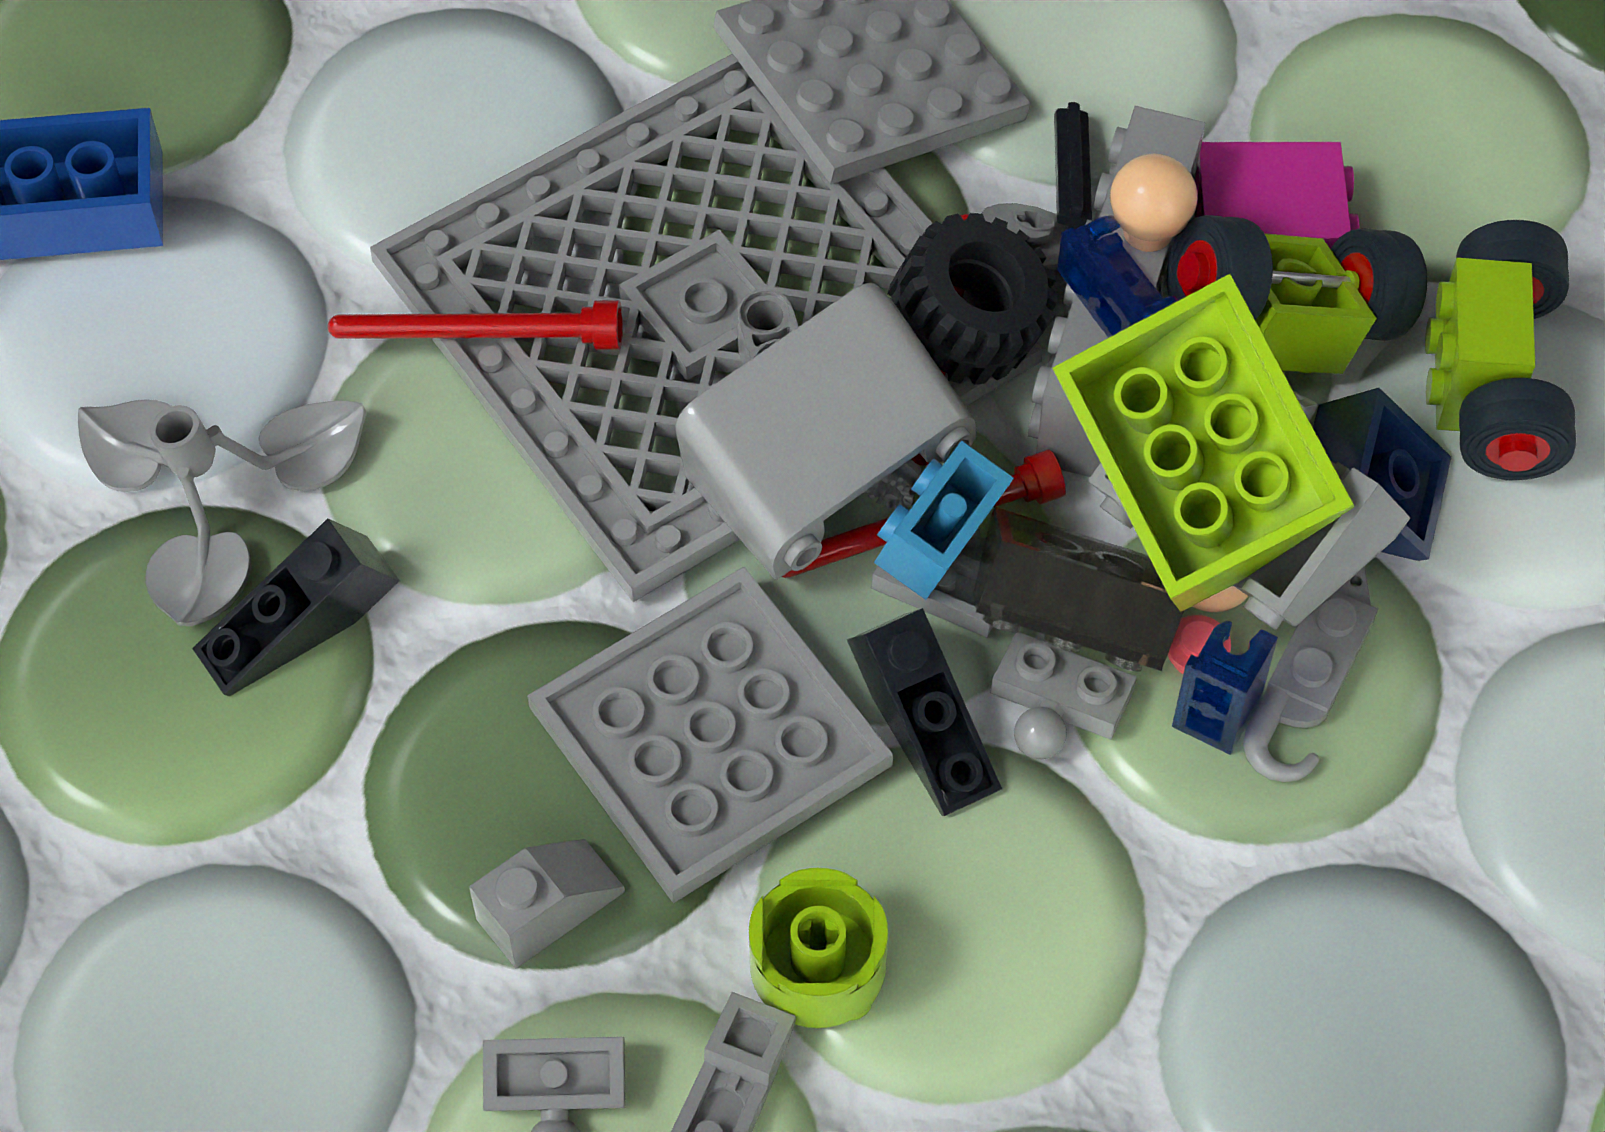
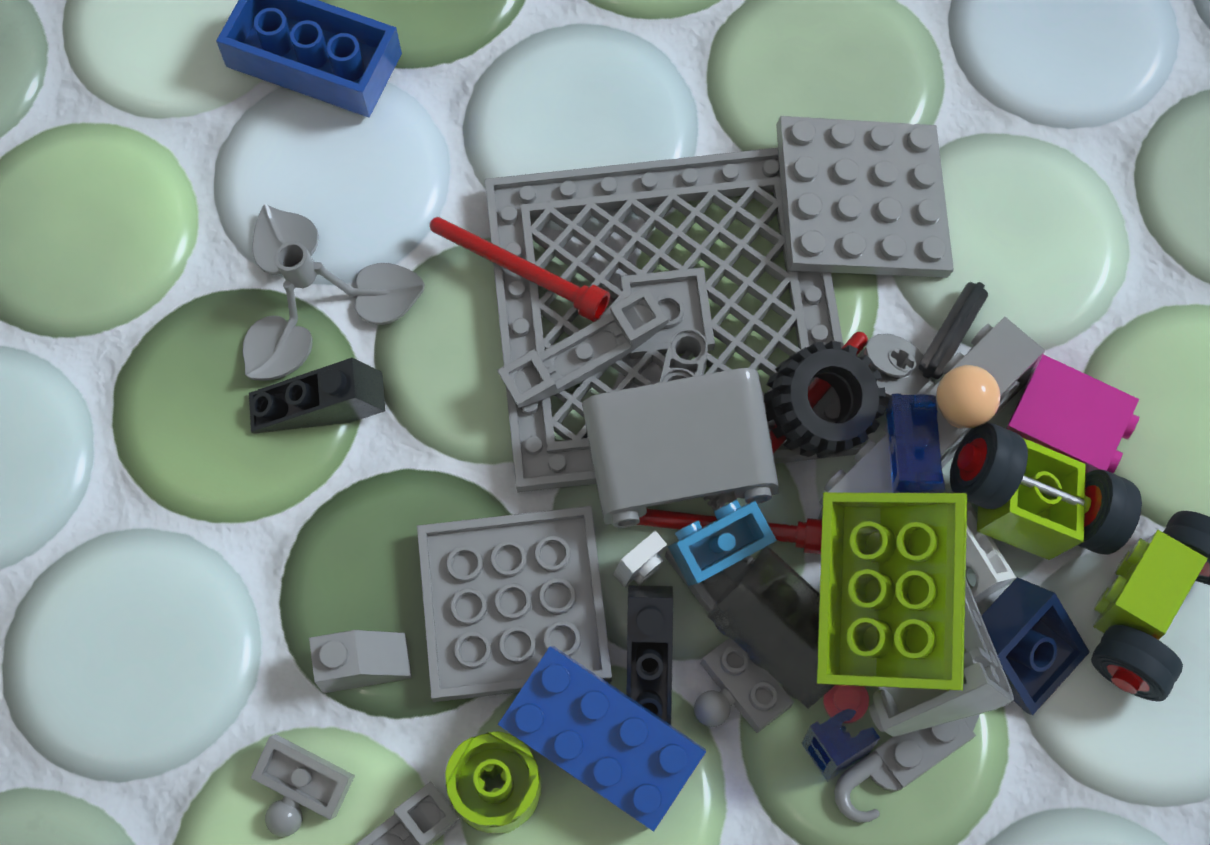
camera: 30 degrees right, 10 degrees up
(633, 383) = (586, 351): none -> light grey slope
(851, 594) = (641, 561): none -> white plate
(931, 819) = (602, 737): none -> blue brick

